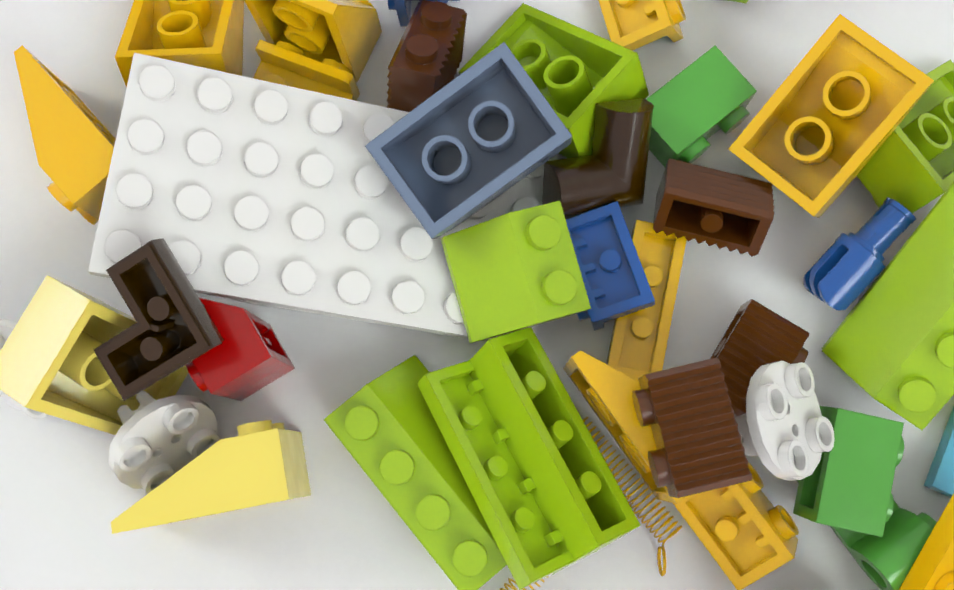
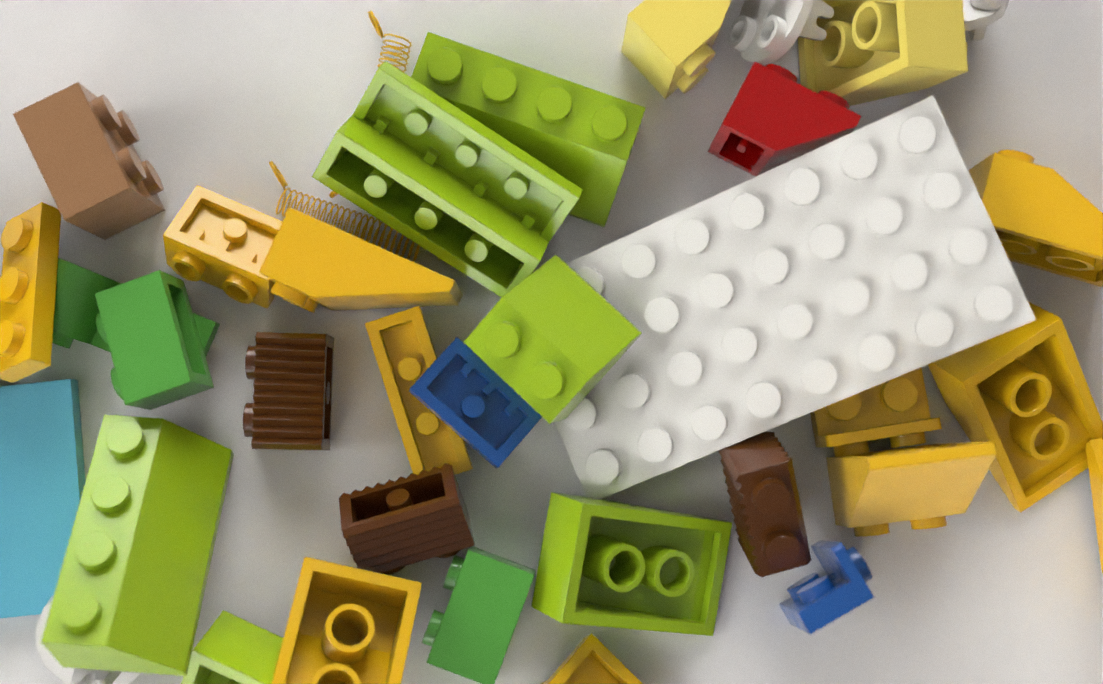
camera: 140 degrees right, 5 degrees up
(169, 318) = (828, 94): dark brown brick -> none
(469, 142) = (664, 426): sand blue brick -> none
(616, 165) = (520, 497): dark brown brick -> none
(691, 429) = (310, 271): reddish brown brick -> none
(785, 421) = (232, 335): white plate -> none
(857, 258) = (243, 551): blue arm -> none

